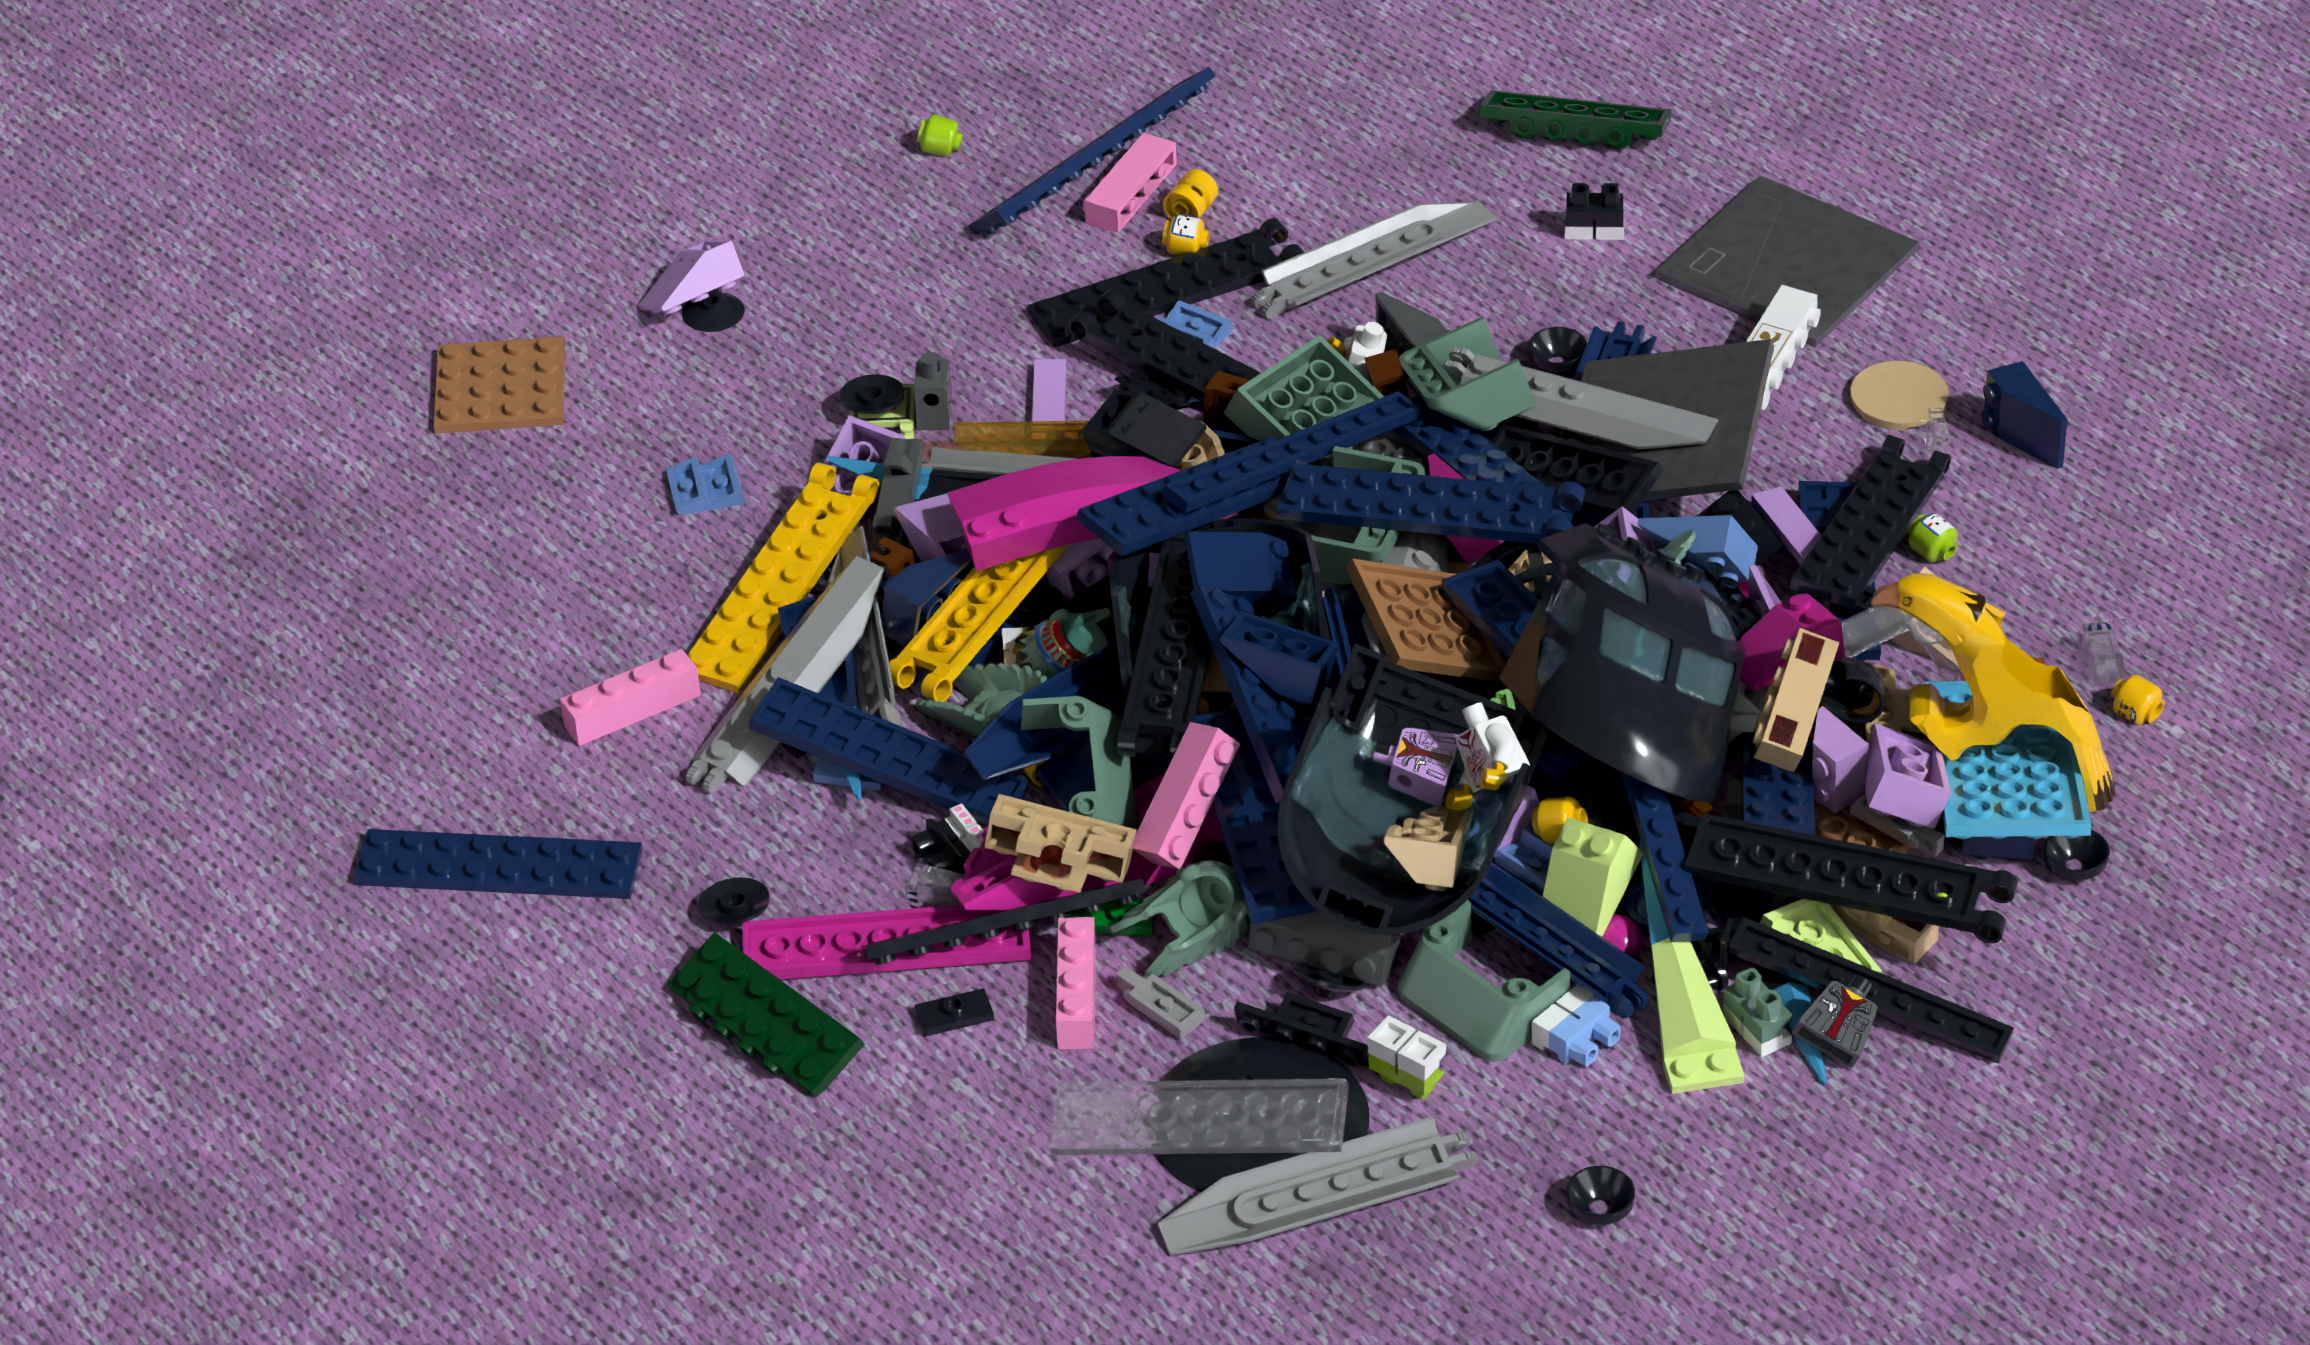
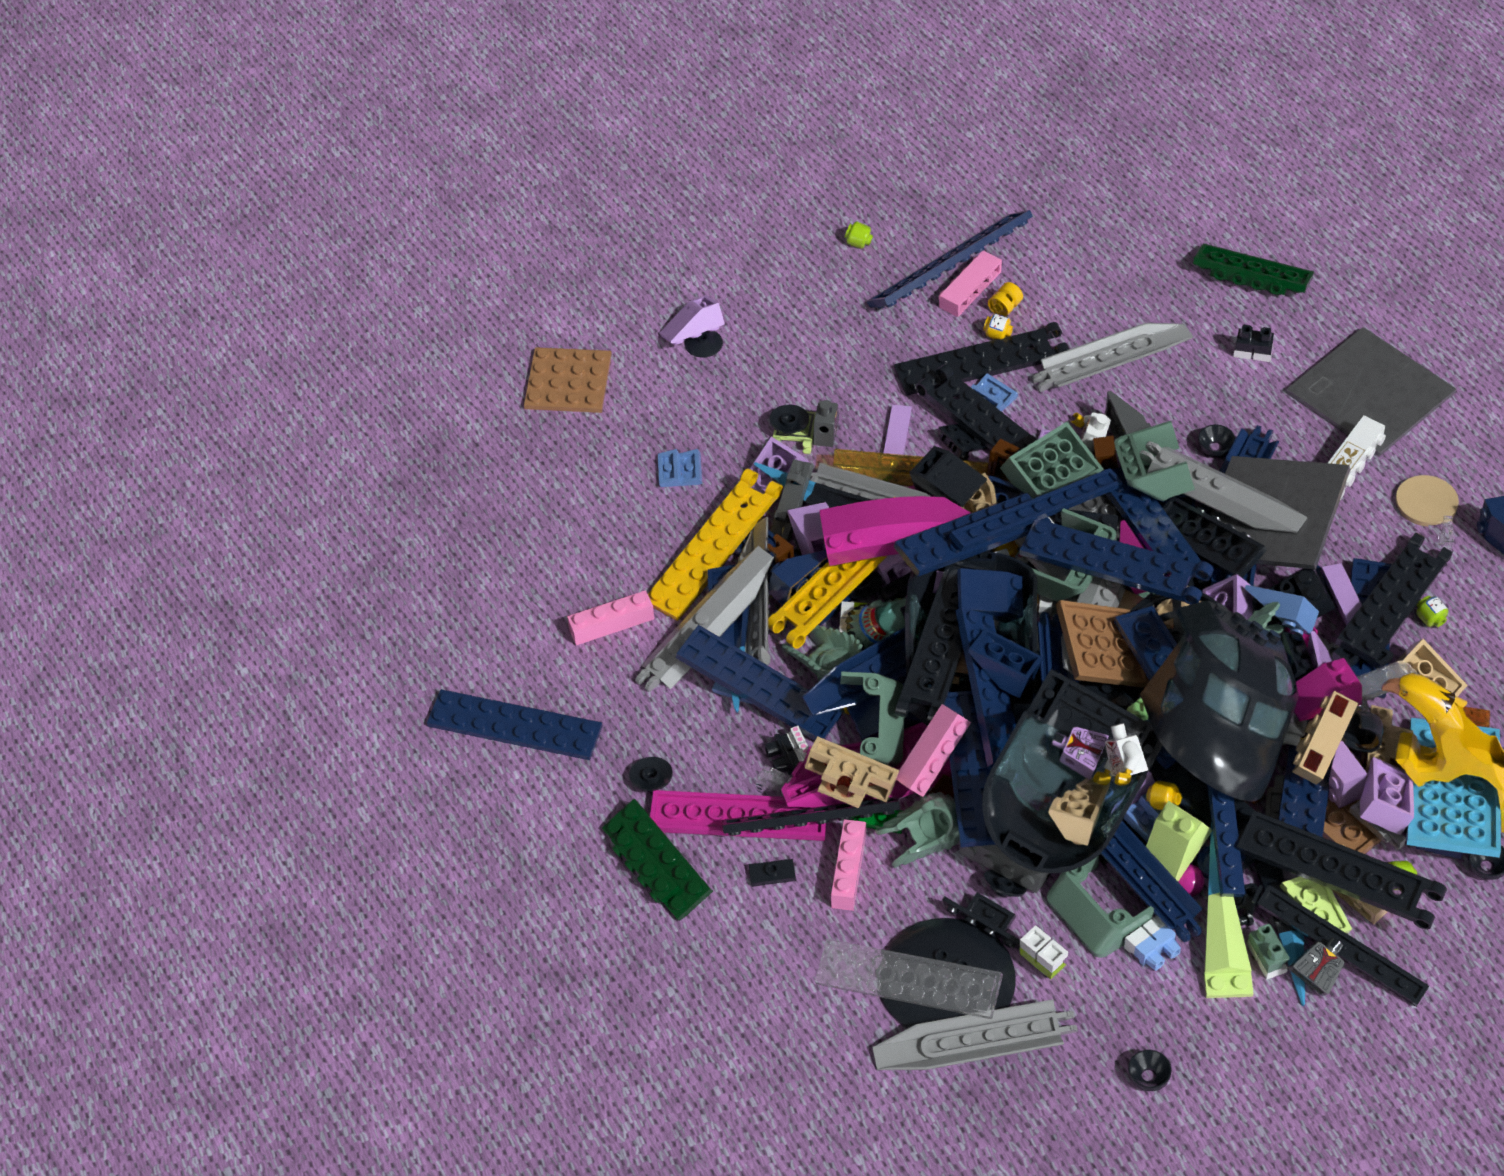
camera: 10 degrees right, 10 degrees up
(1160, 1002) = (898, 885): light grey hinge -> none

